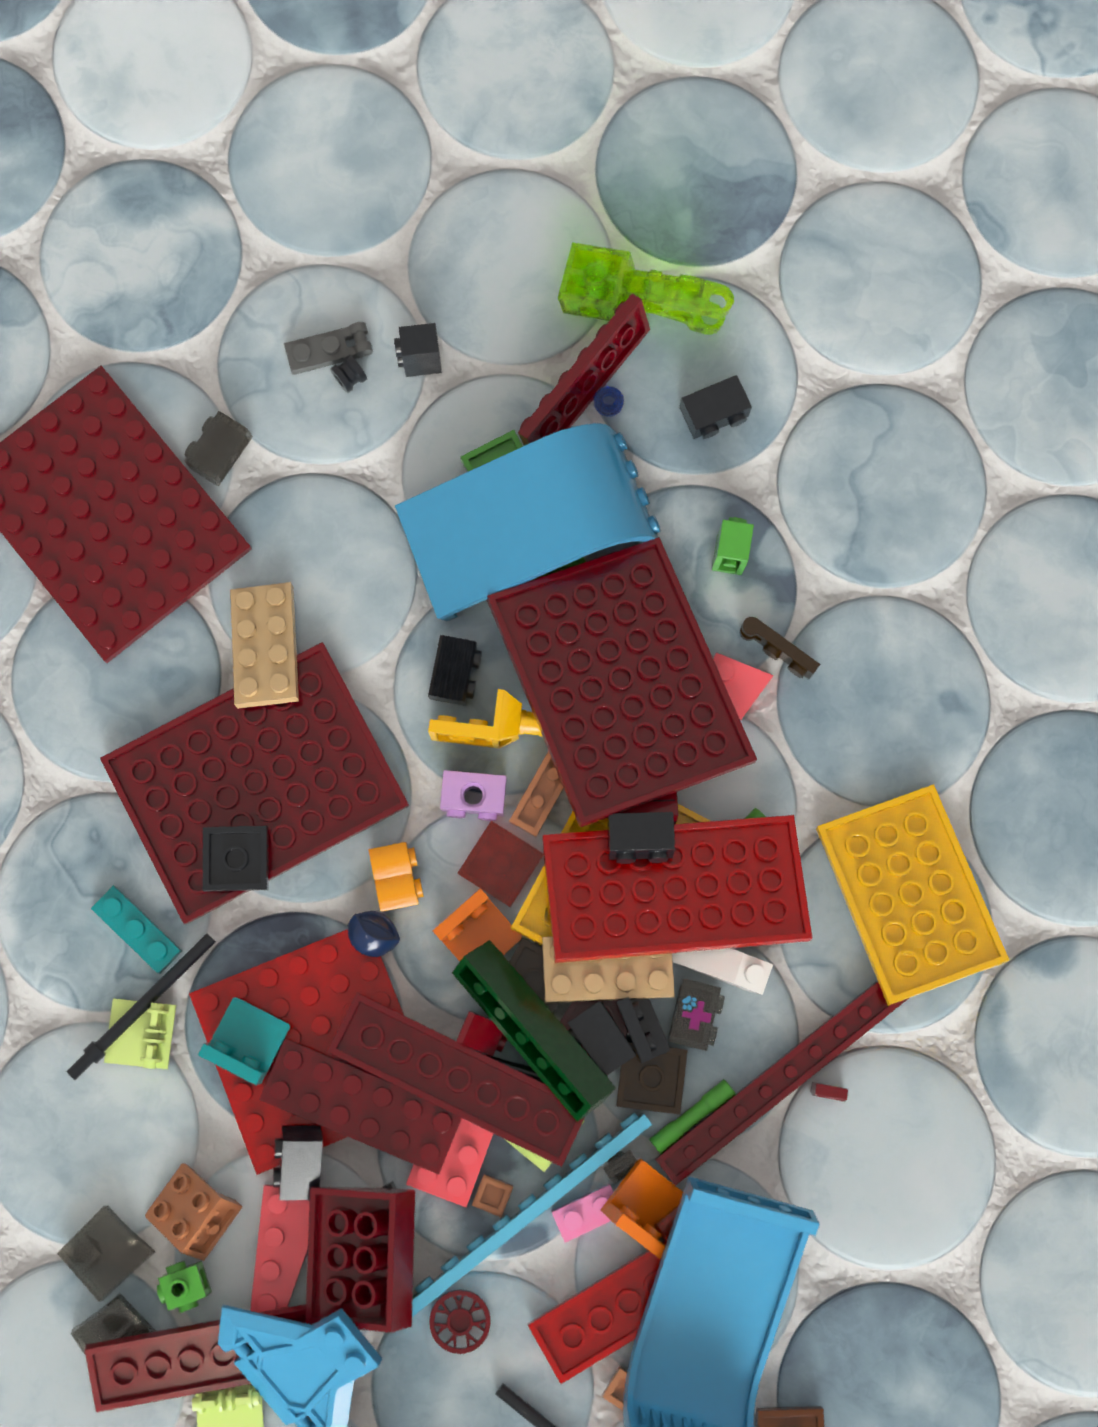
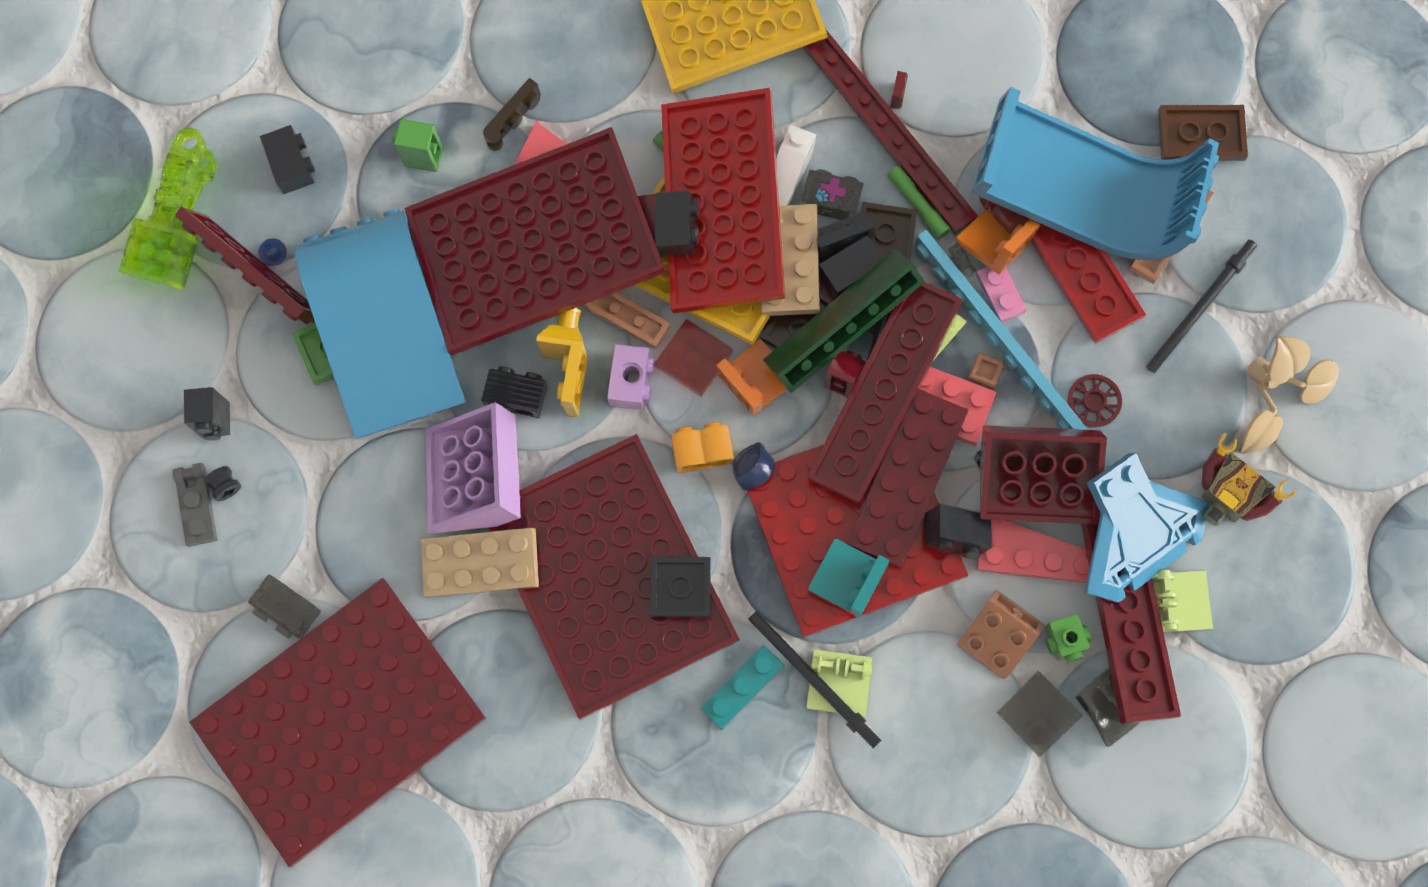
camera: 80 degrees left, 5 degrees down
(361, 631) = (472, 471): none -> lavender slope

